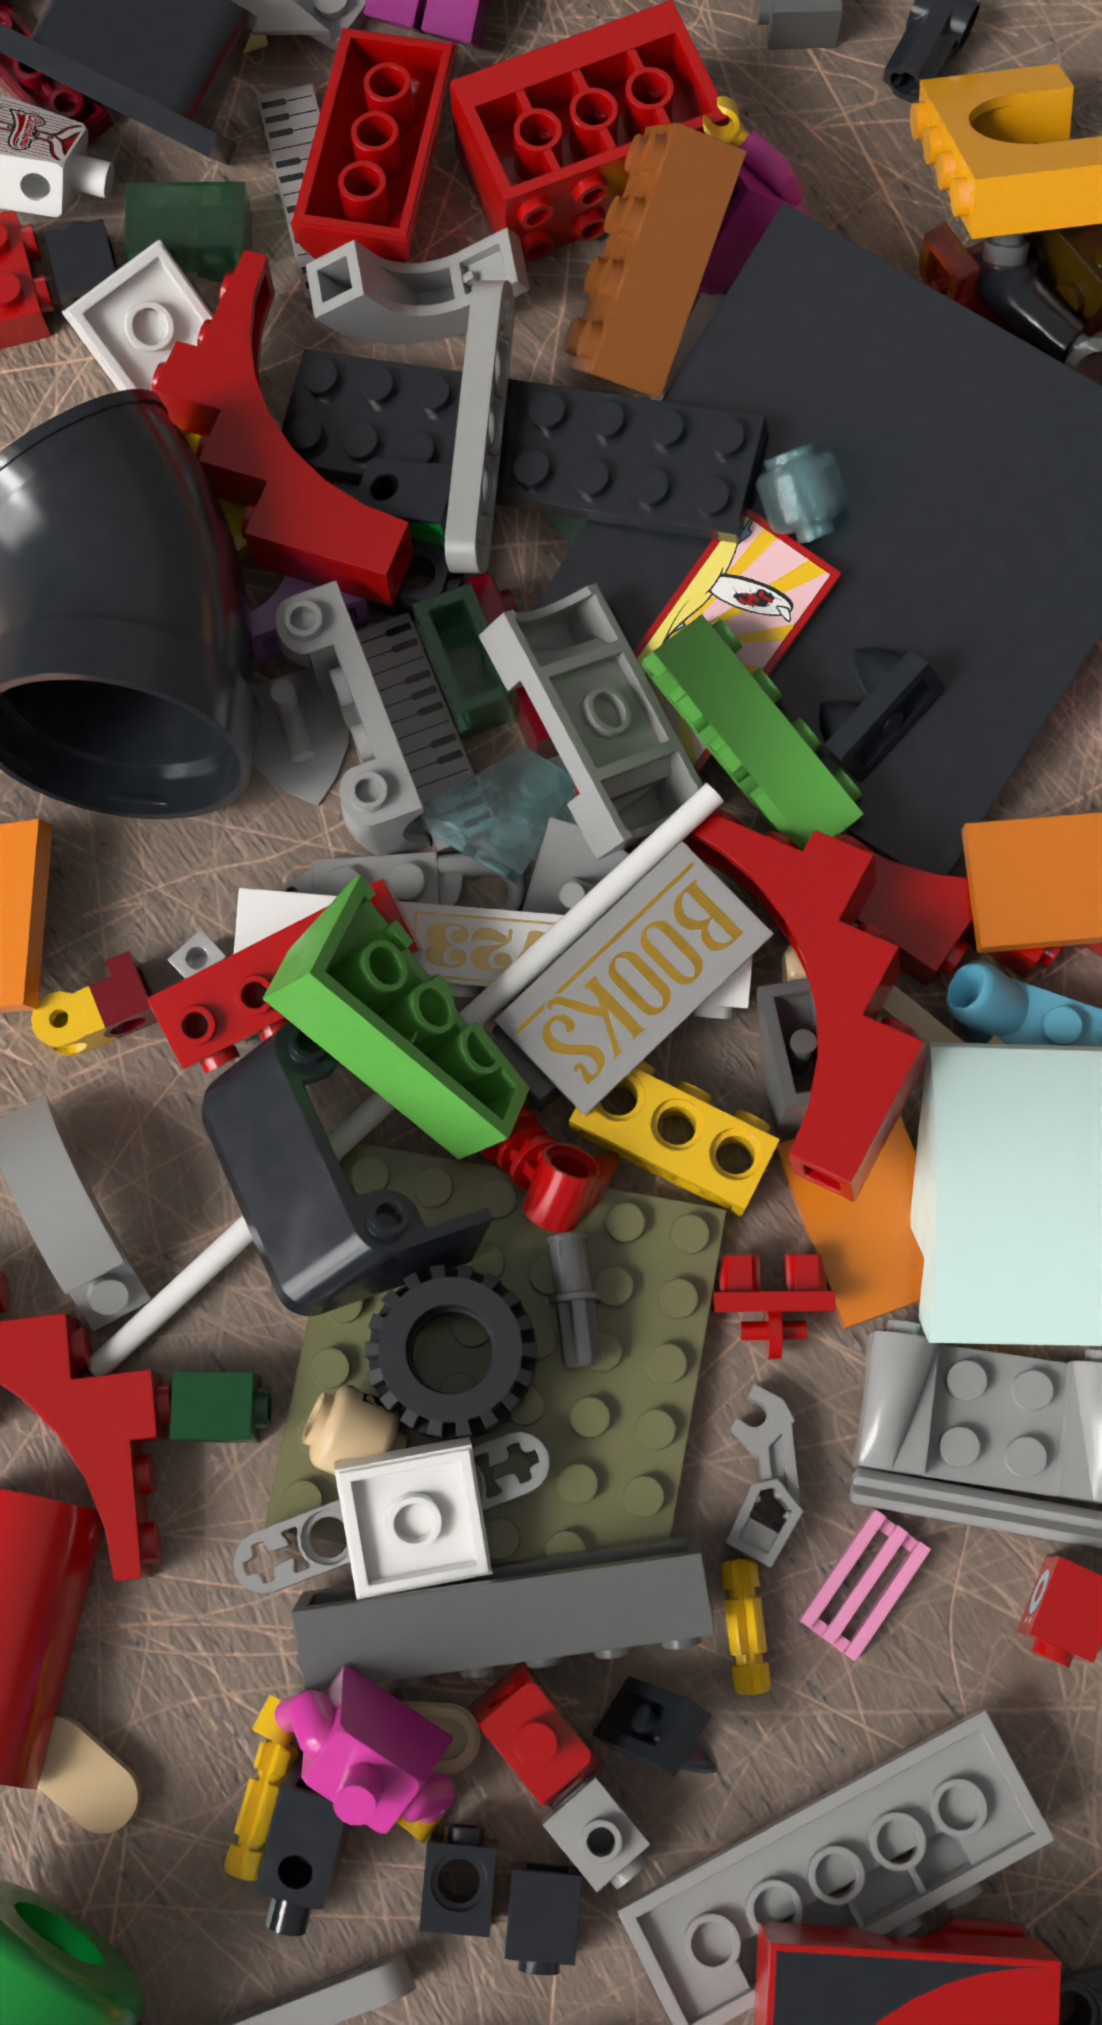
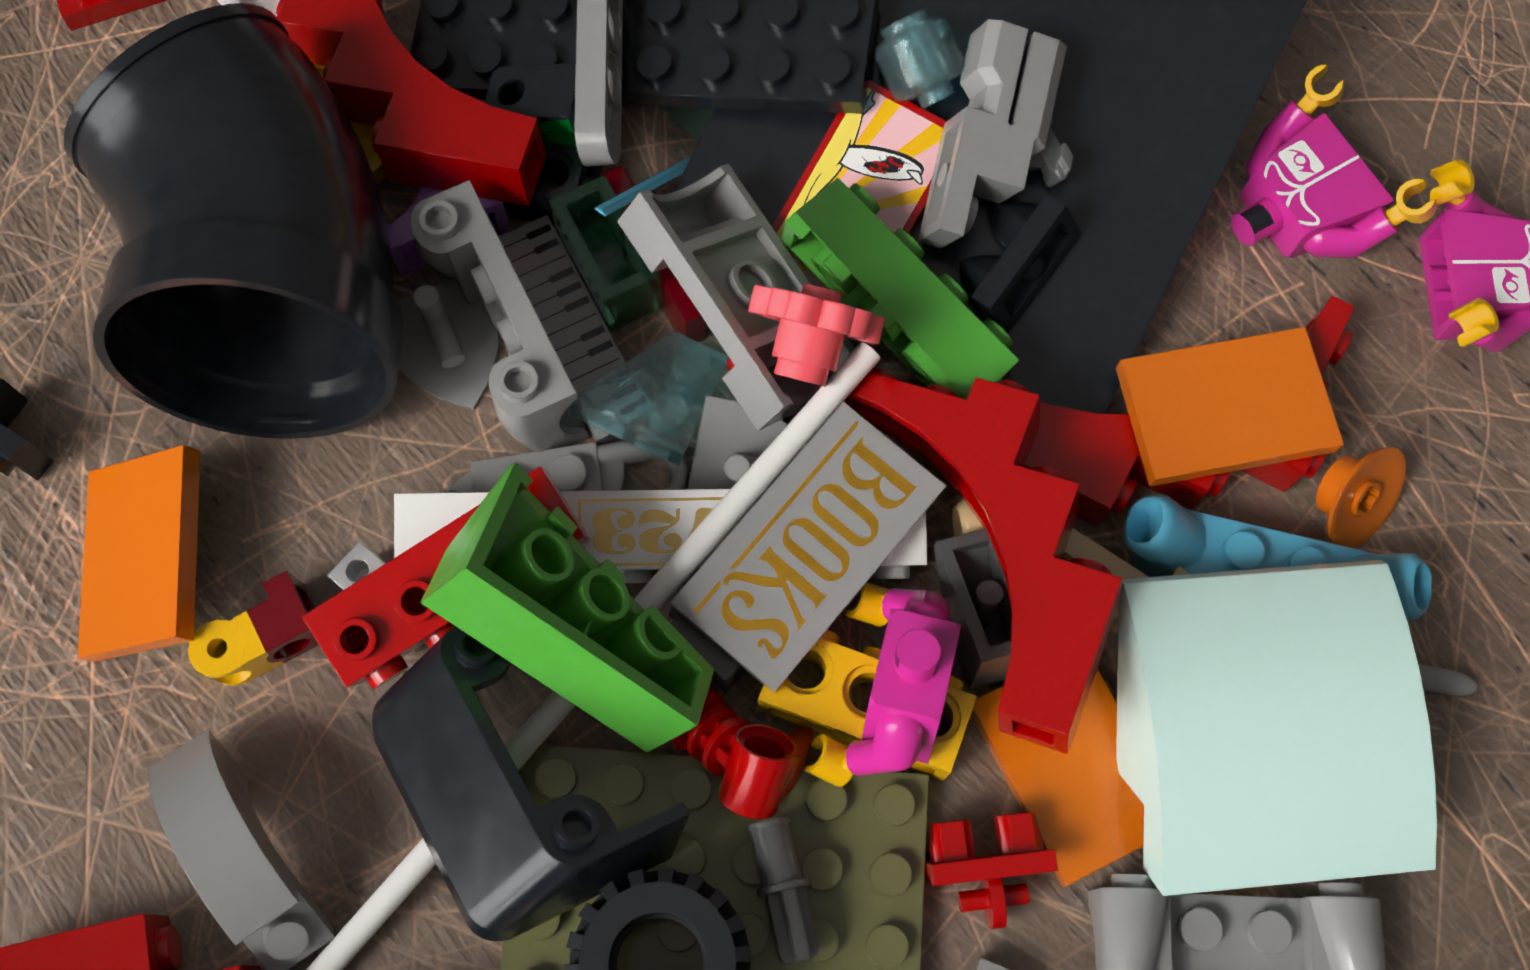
camera: 10 degrees left, 5 degrees down
(509, 597) = (652, 183): none -> medium azure piece
(658, 769) = (812, 329): none -> coral plant
(708, 1123) = (906, 686): none -> dark pink torso
(875, 578) = (1000, 132): none -> light grey plate

